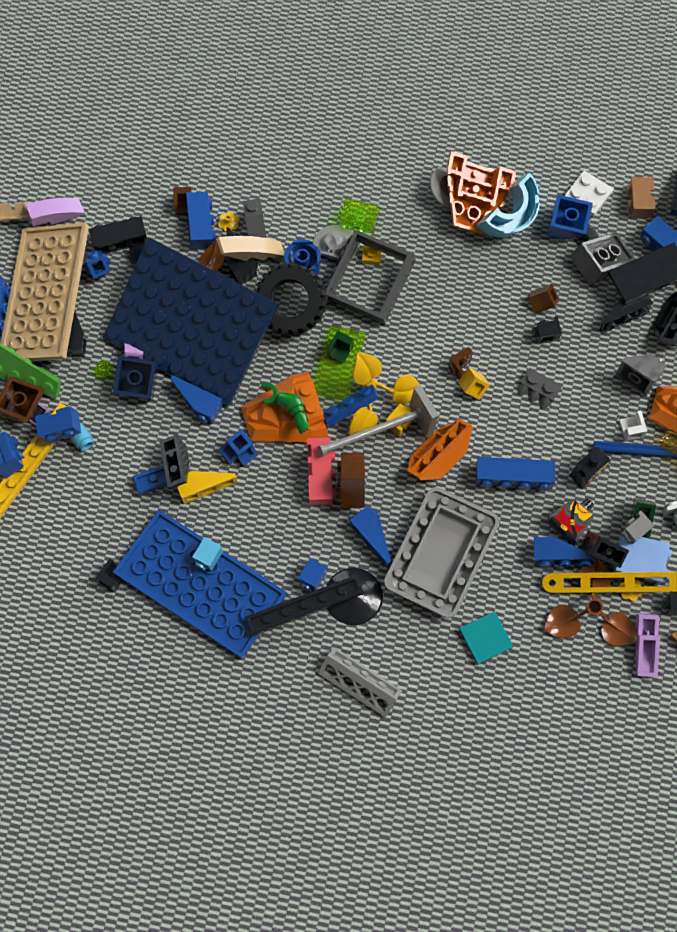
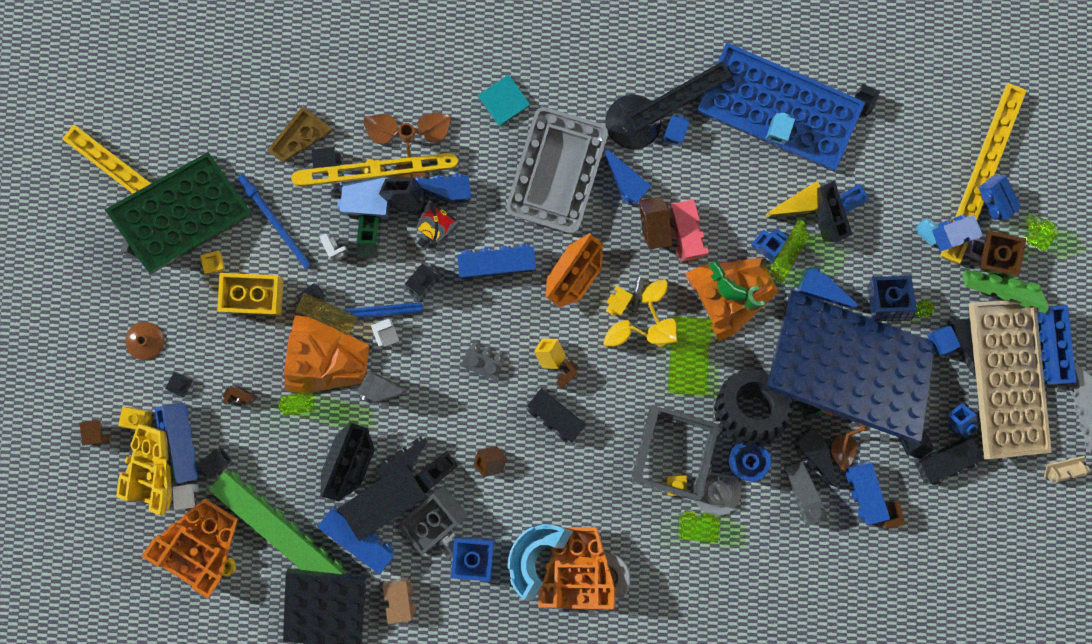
camera: 165 degrees right, 15 degrees up
(54, 210) = (1024, 477): lavender slope -> none
(94, 337) = (944, 341): none -> blue brick
(132, 352) = (901, 326): lavender slope -> none
(223, 435) = (790, 251): none -> clear neon green tile
(230, 220) = (830, 500): yellow plant -> none
(250, 247) = (807, 461): tan slope -> none
(340, 347) = (692, 367): dark green panel -> none
(350, 405) = (670, 304): blue plate -> none
(361, 678) = (614, 42): light grey fence -> none
(374, 438) = (637, 294): none -> dark grey pin
(422, 412) = (598, 307): light grey tile -> none
(475, 327) = (555, 416): none -> black brick
(547, 331) = (483, 424): black brick -> none
(591, 190) = (455, 599): white plate -> none
(596, 296) = (436, 471): none -> black slope
(637, 528) = (372, 215): light grey brick -> none
(647, 644) = (353, 117): lavender slope -> none

